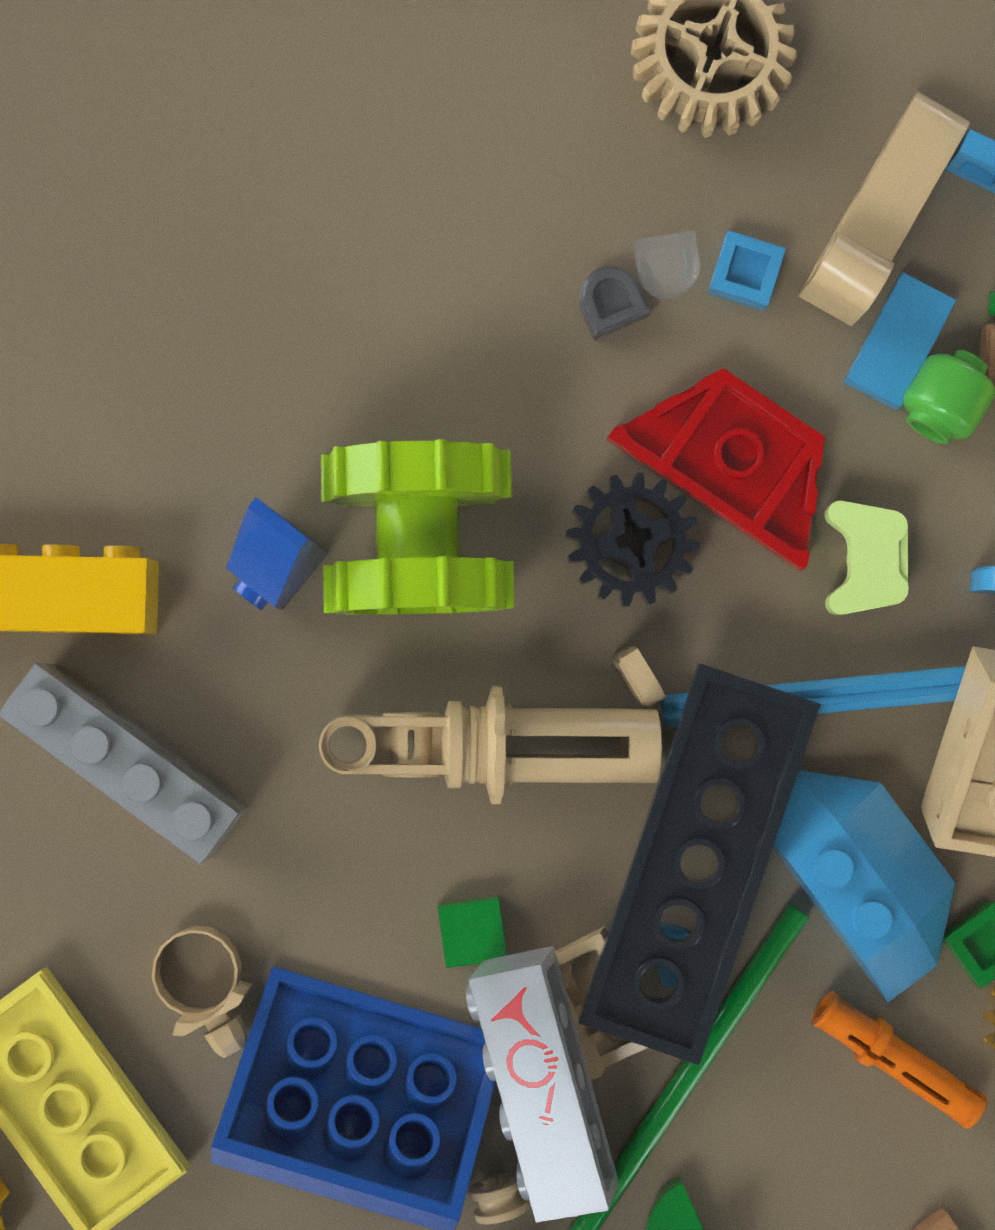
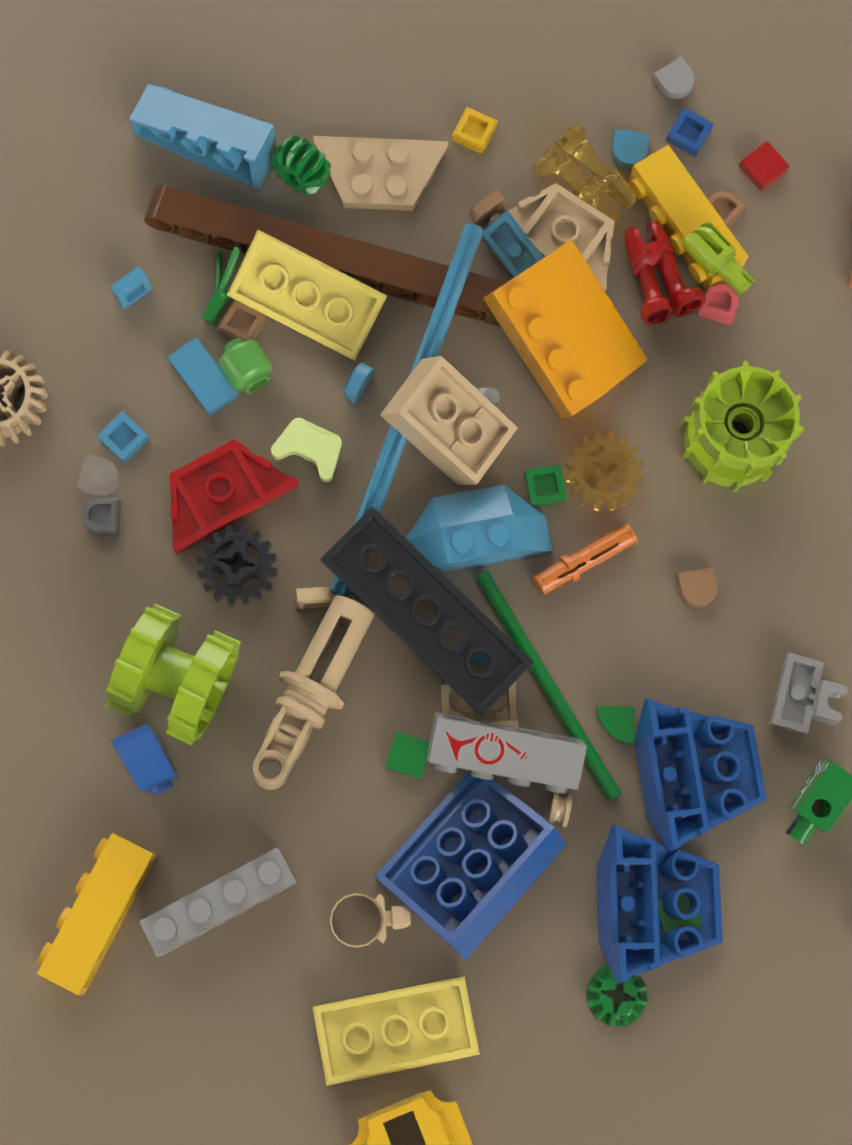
camera: 70 degrees left, 10 degrees down
(884, 210) = (129, 351): tan beam -> none

